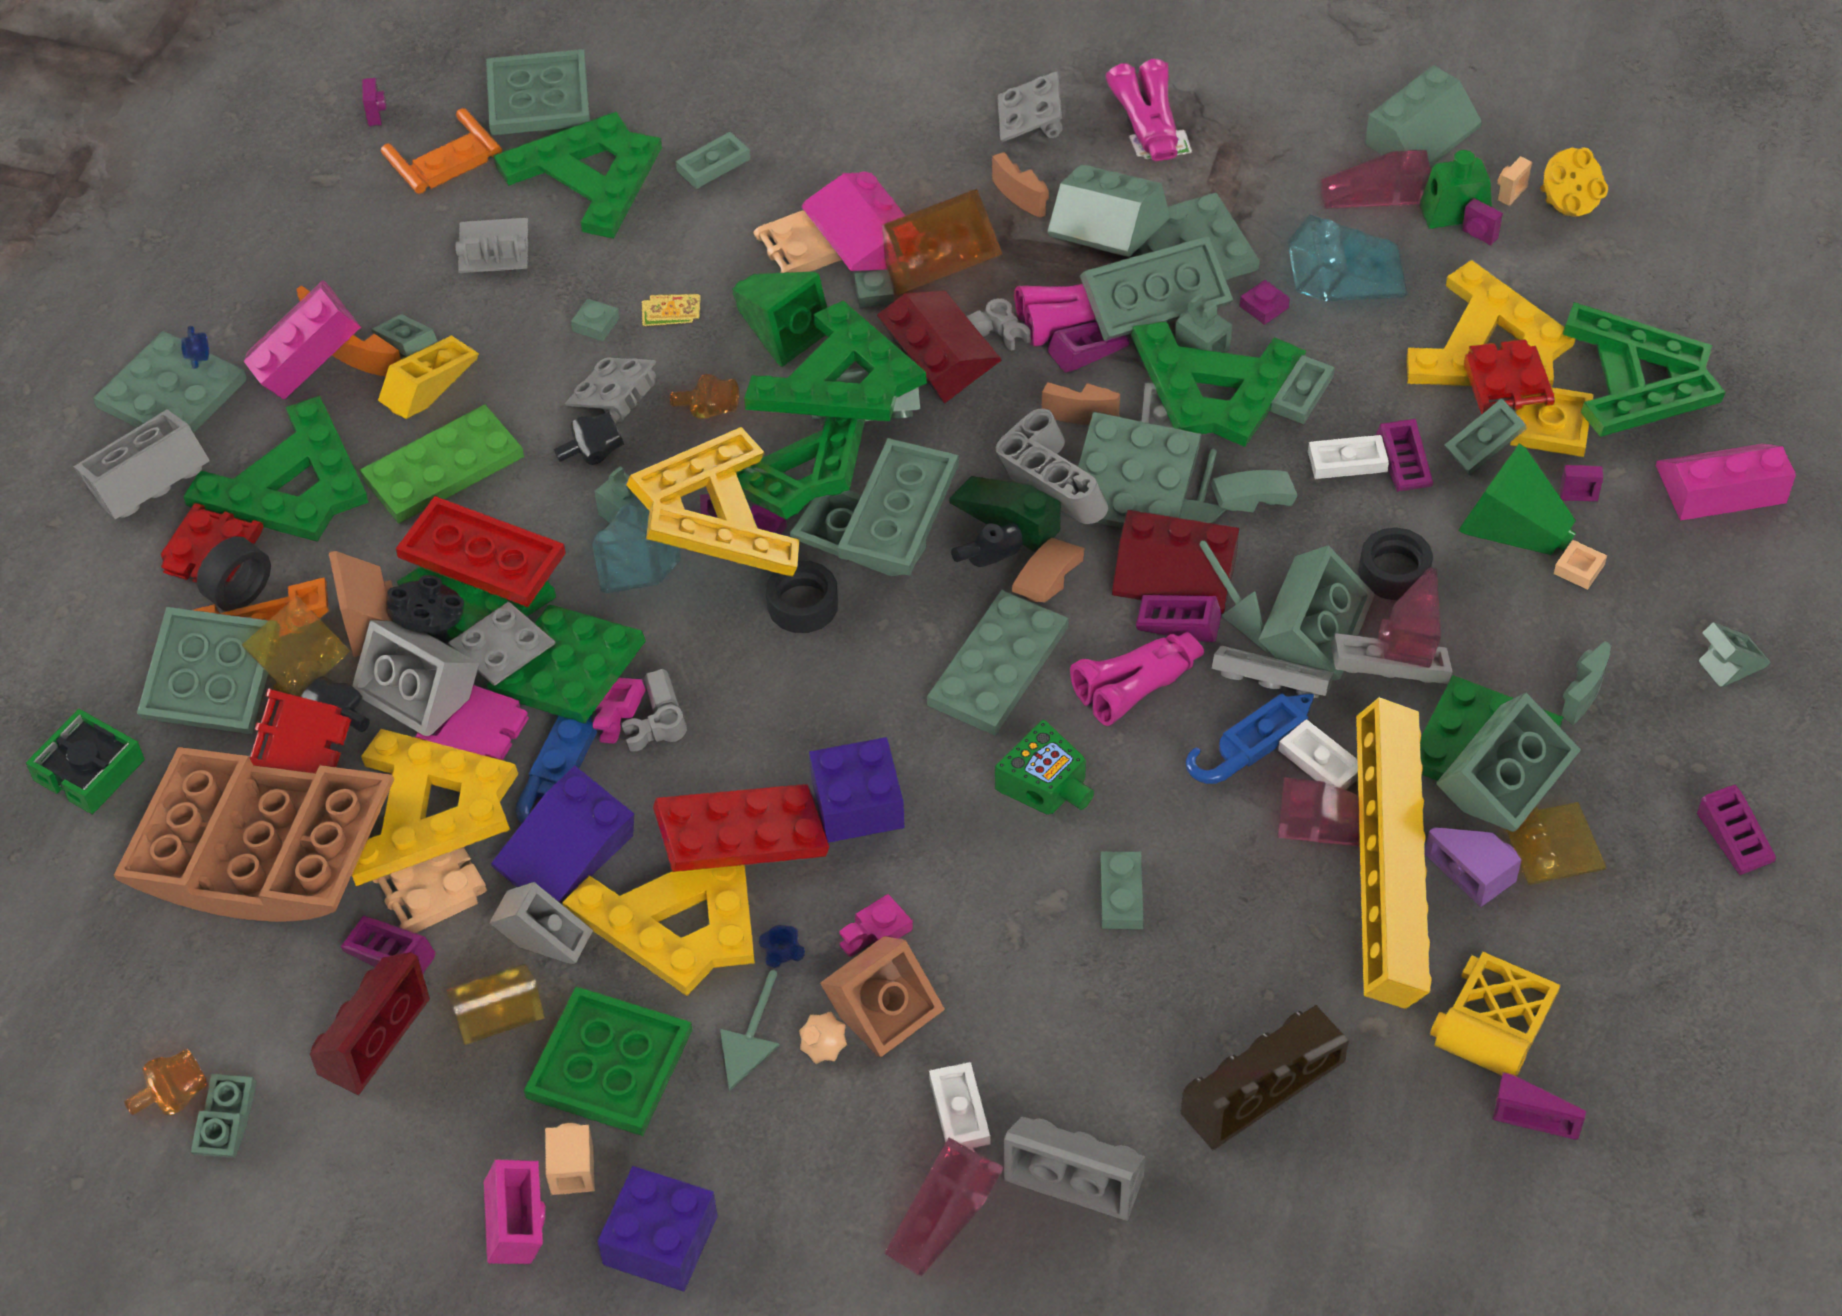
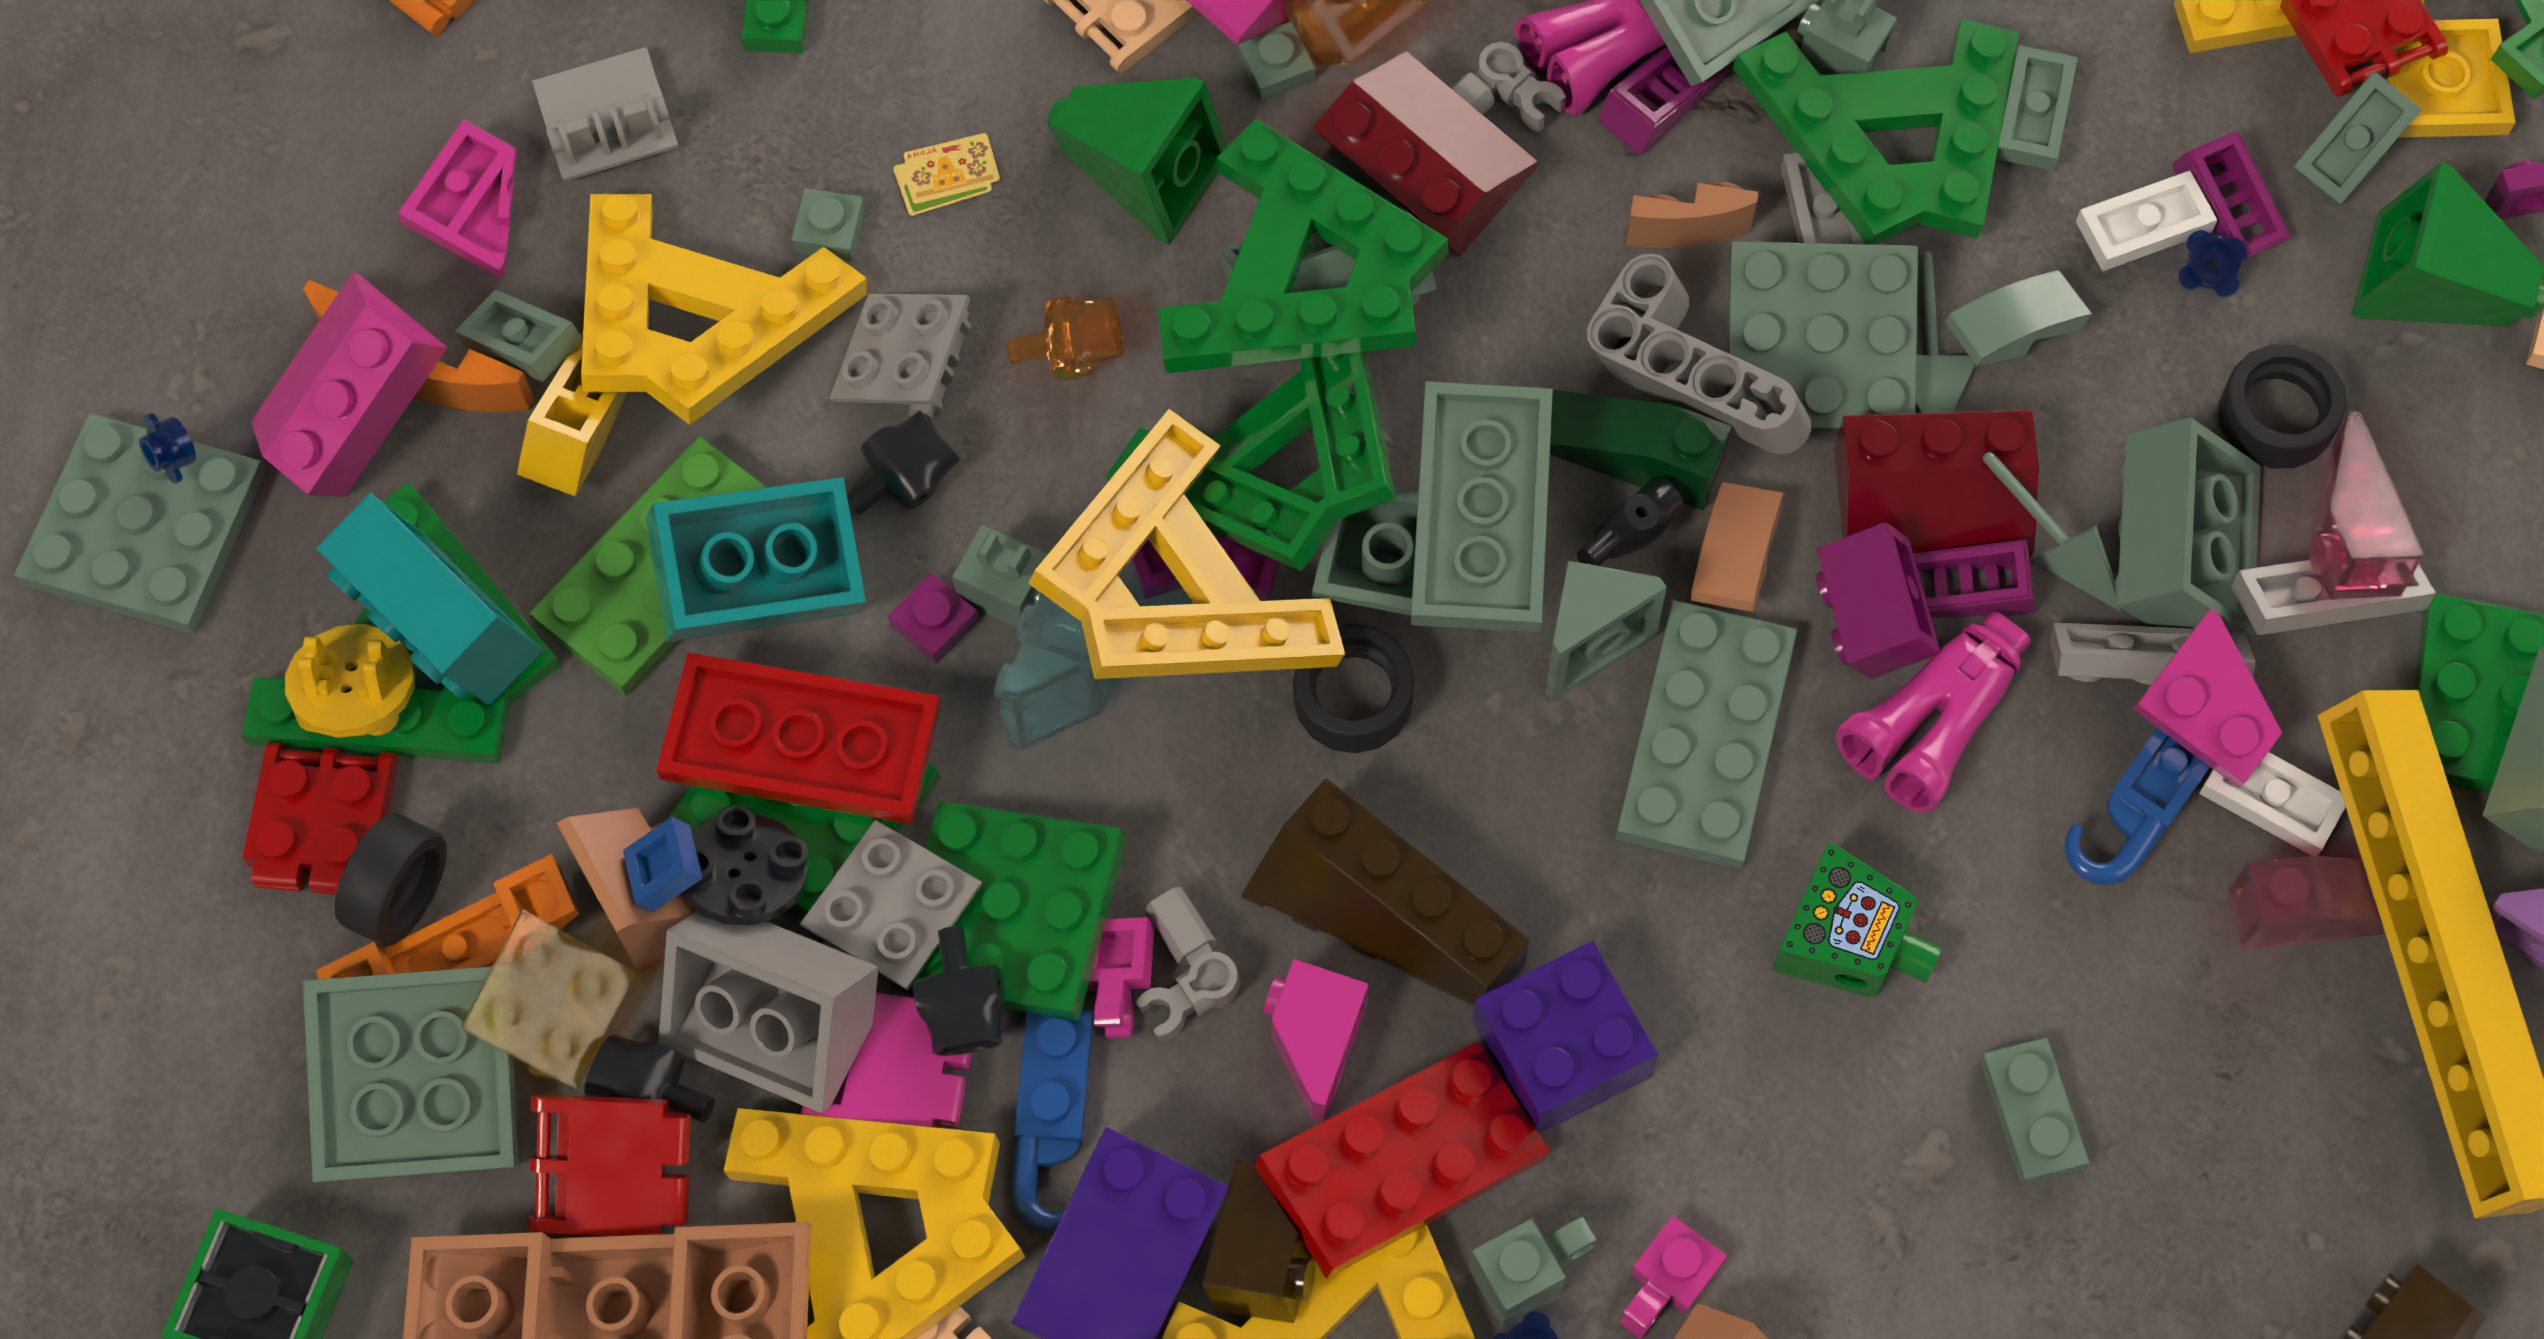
camera: 15 degrees left, 15 degrees up
(142, 464) = (150, 693): light grey slope -> none
(248, 476) = (377, 686): none -> yellow plate
(304, 441) = (426, 602): none -> teal brick
(378, 585) = (662, 864): none -> blue plate
(402, 269) = (467, 199): none -> dark pink wing
(488, 459) = (754, 559): none -> teal brick
(520, 695) = (962, 1001): none -> black piece
(530, 348) = (756, 312): none -> yellow plate
(581, 518) = (933, 618): none -> magenta plate
(638, 857) = (1256, 1254): none -> dark brown slope
(720, 753) = (1315, 1029): none -> dark pink slope
(776, 695) = (1368, 886): none -> dark brown wedge
(789, 899) = (1523, 1270): none -> sand green brick
(949, 586) = (1600, 622): none -> sand green slope
(1117, 610) = (1876, 601): none -> magenta brick
(1293, 695) = (2212, 703): none -> dark pink wing
(1378, 475) = (2228, 254): none -> clear blue plate

